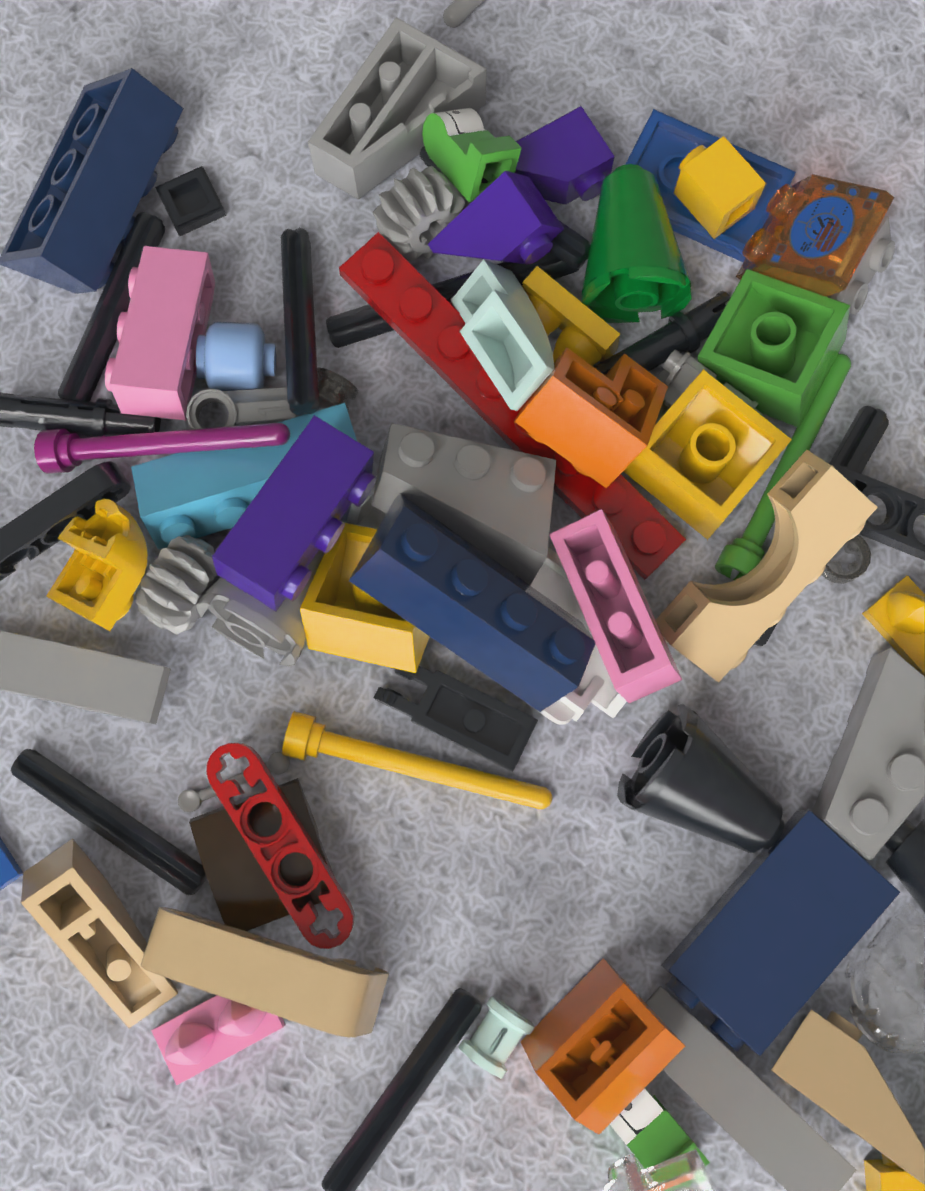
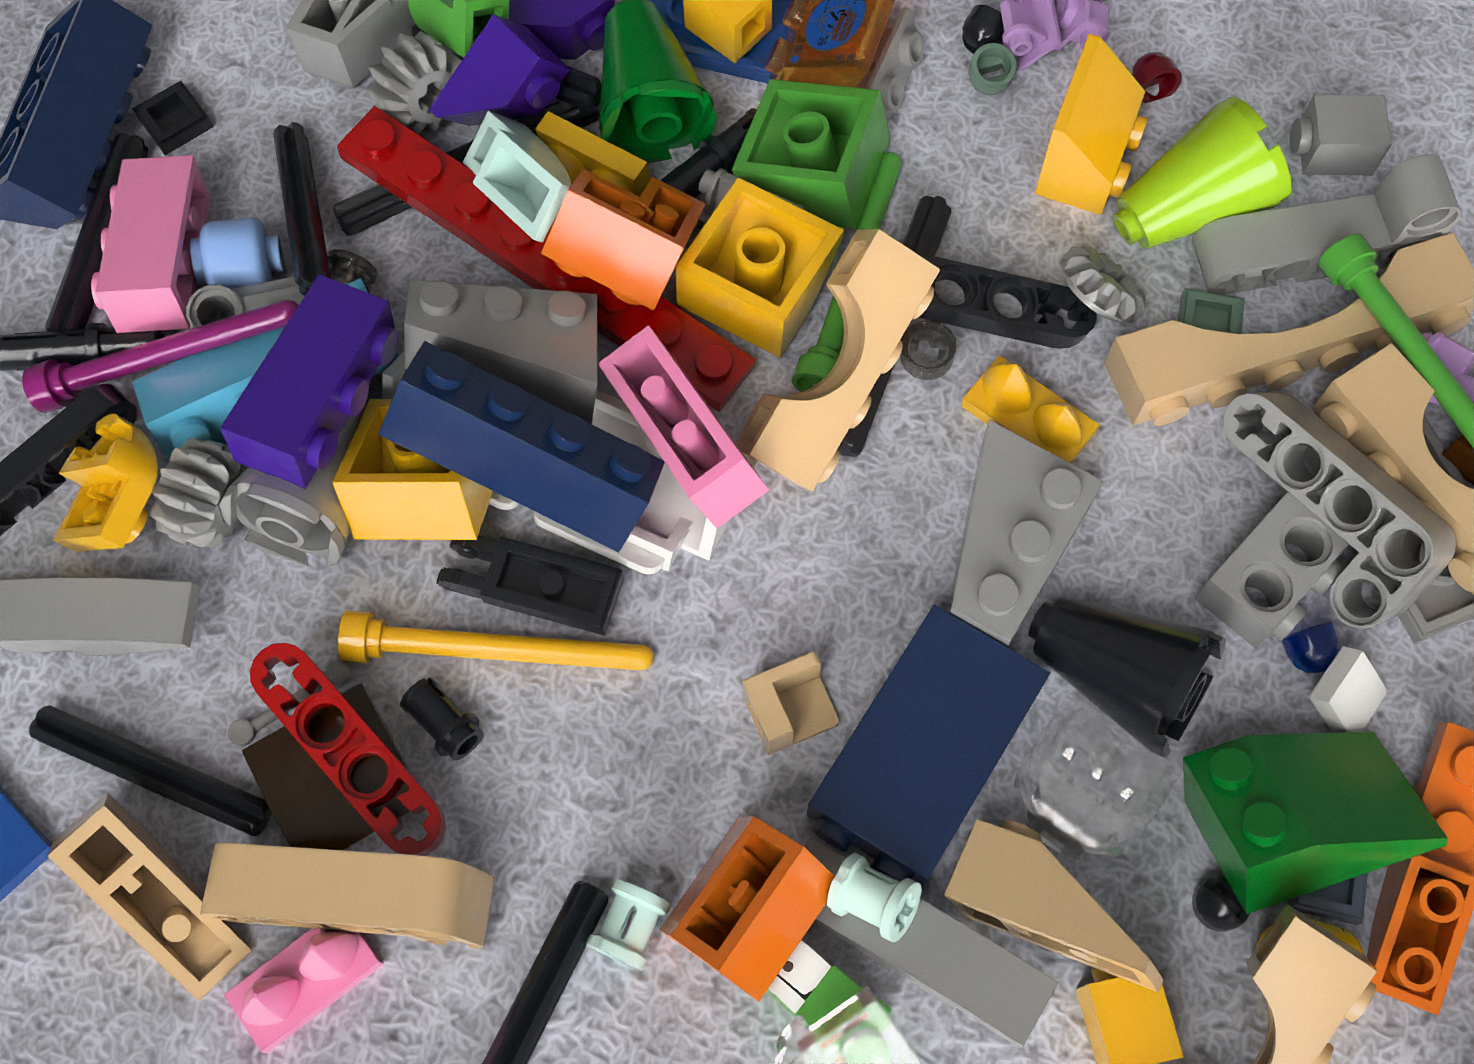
camera: 10 degrees left, 10 degrees down
(362, 824) = (442, 719): none -> black pin
(664, 869) = (789, 703): none -> tan panel
(700, 785) = (811, 601): black cone -> none
(712, 1066) = (874, 897): none -> light aqua bush

